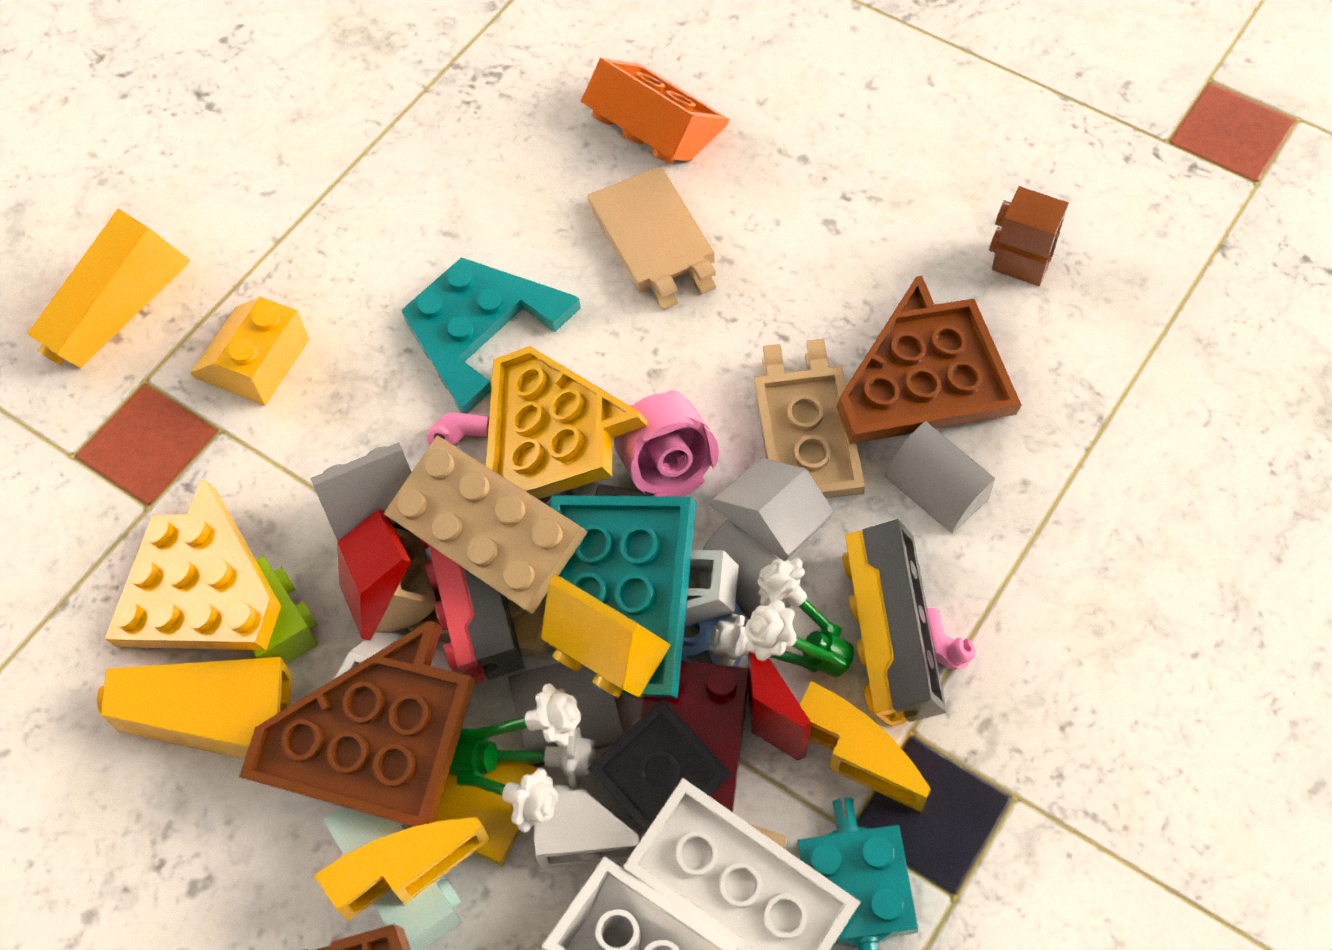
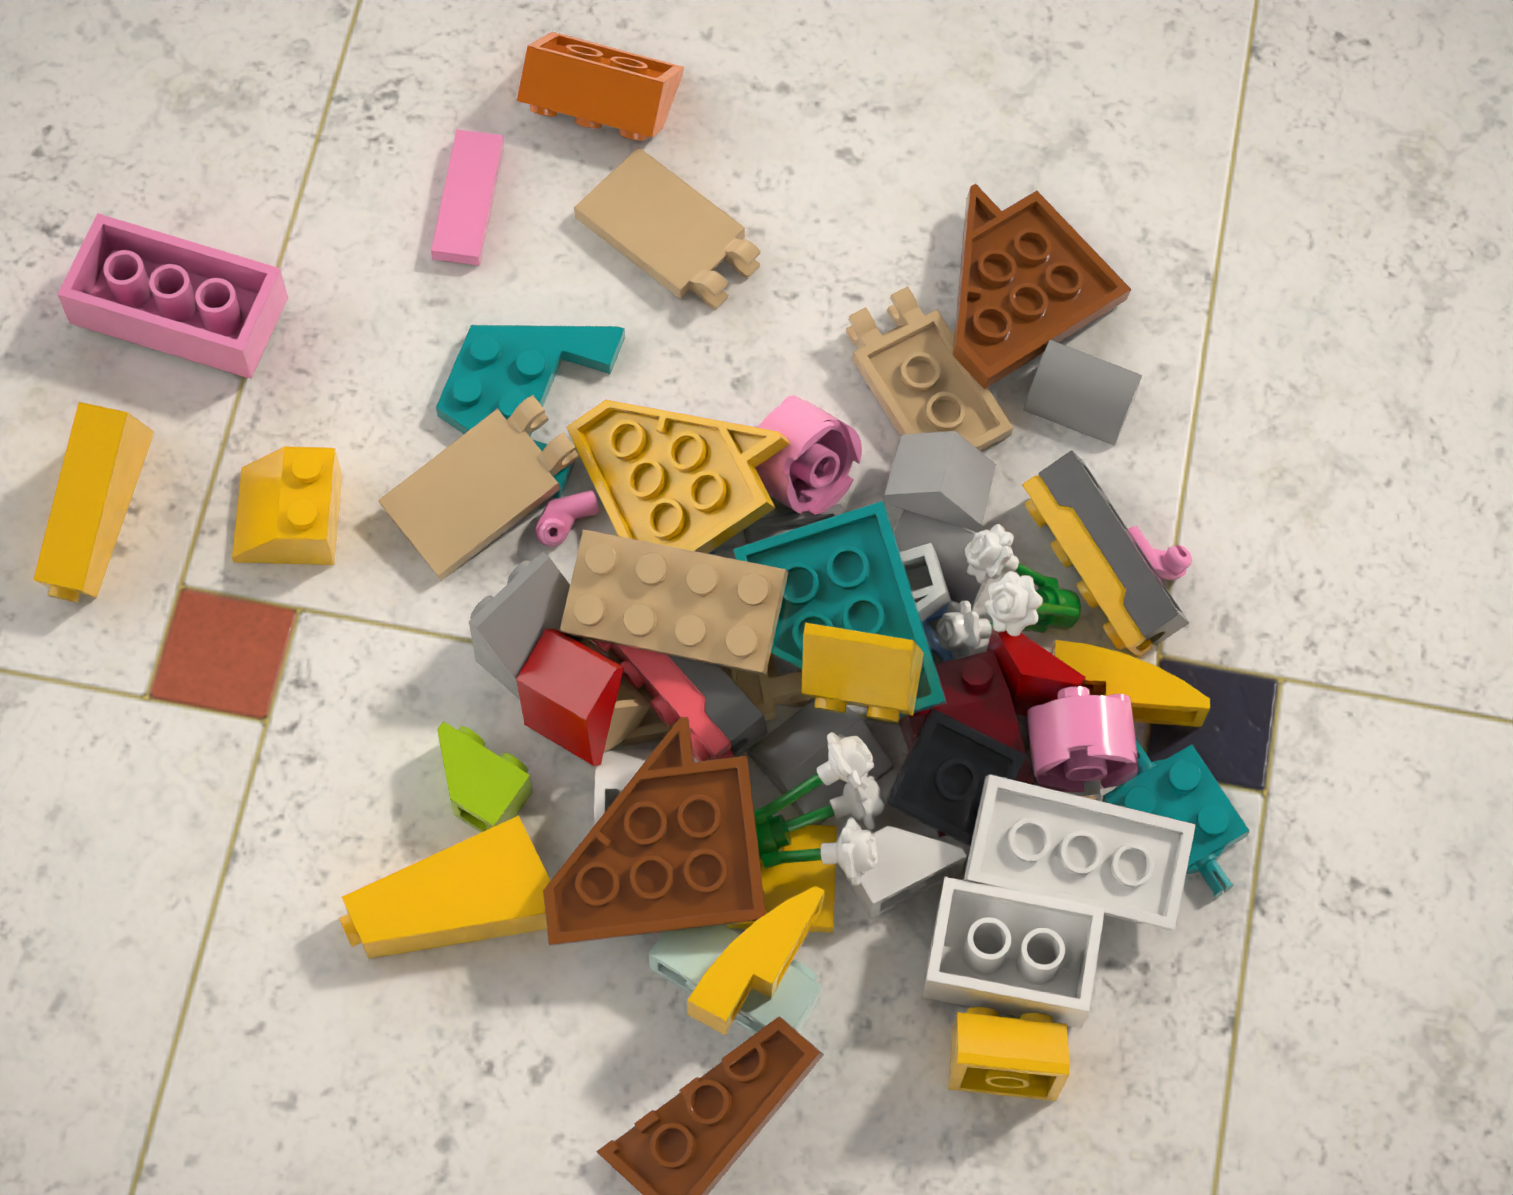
camera: 30 degrees left, 5 degrees up
(195, 585) = (381, 779): yellow wing -> none
(249, 163) = (173, 295): none -> bright pink brick
(399, 381) = (478, 487): none -> tan tile
(511, 164) = (467, 197): none -> bright pink tile
(794, 781) = (1082, 740): none -> bright pink brick
(1027, 235) = (1066, 105): dark orange piece -> none

